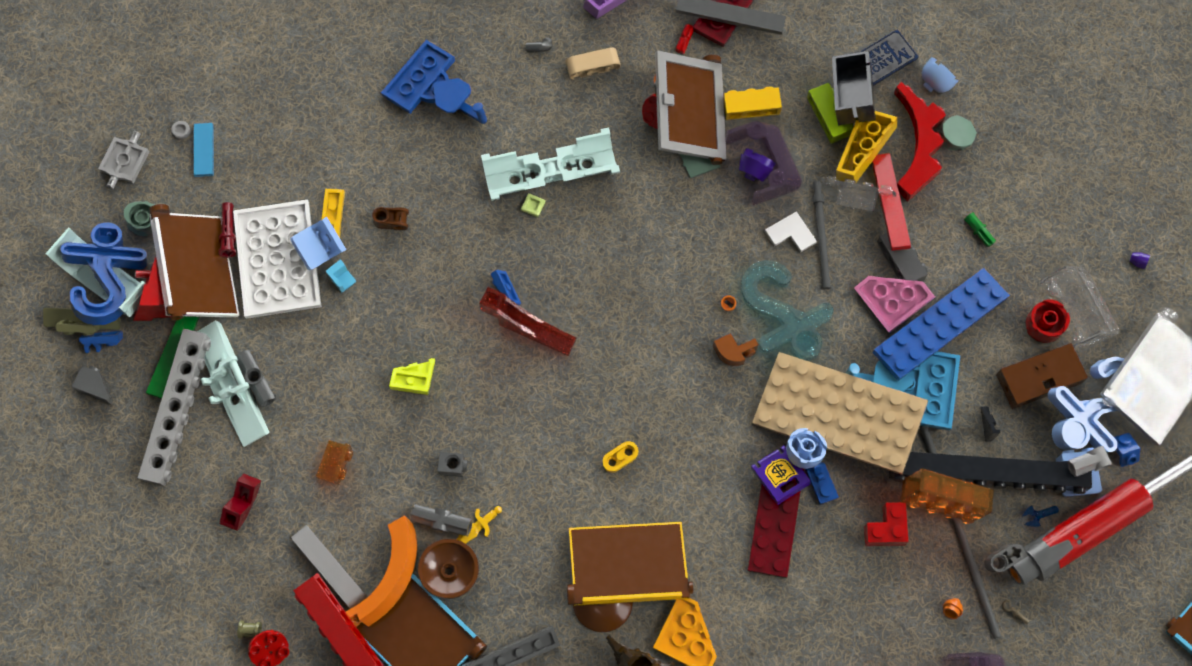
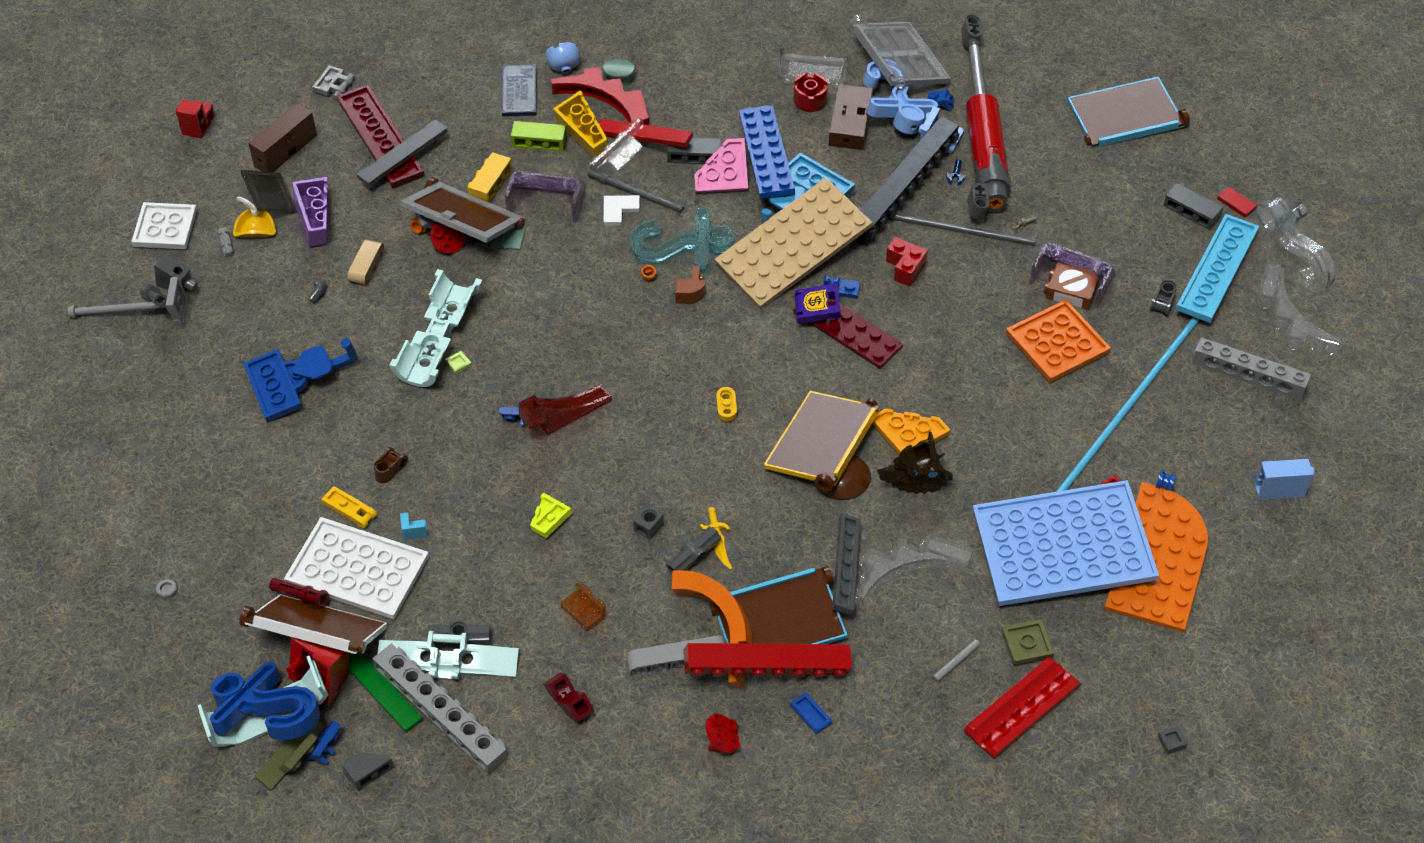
camera: 60 degrees left, 20 degrees down
(123, 160) = (158, 646): light grey plate -> none
(138, 212) = (229, 657): sand green hat -> none
(203, 150) = (201, 579): dark azure tile -> none
(248, 629) = (693, 744): olive bush -> none
(317, 243) = (372, 520): light blue bracket -> none
(448, 555) = (738, 555): reddish brown dish -> none
(684, 39) = (392, 192): red piece -> none
(755, 165) = (546, 198): dark purple cone -> none
(806, 448) = (810, 272): light blue cylinder -> none
(853, 88) = (535, 102): black piece -> none
(947, 496) = (908, 207): clear orange brick -> none
(952, 608) = (996, 255): orange plate -> none
(980, 229) = (706, 97): green axle -> none
(989, 424) = (868, 164): black tile -> none
(1094, 460) = (939, 113): light grey piece -> none
(1139, 259) = (801, 22): dark purple hose -> none

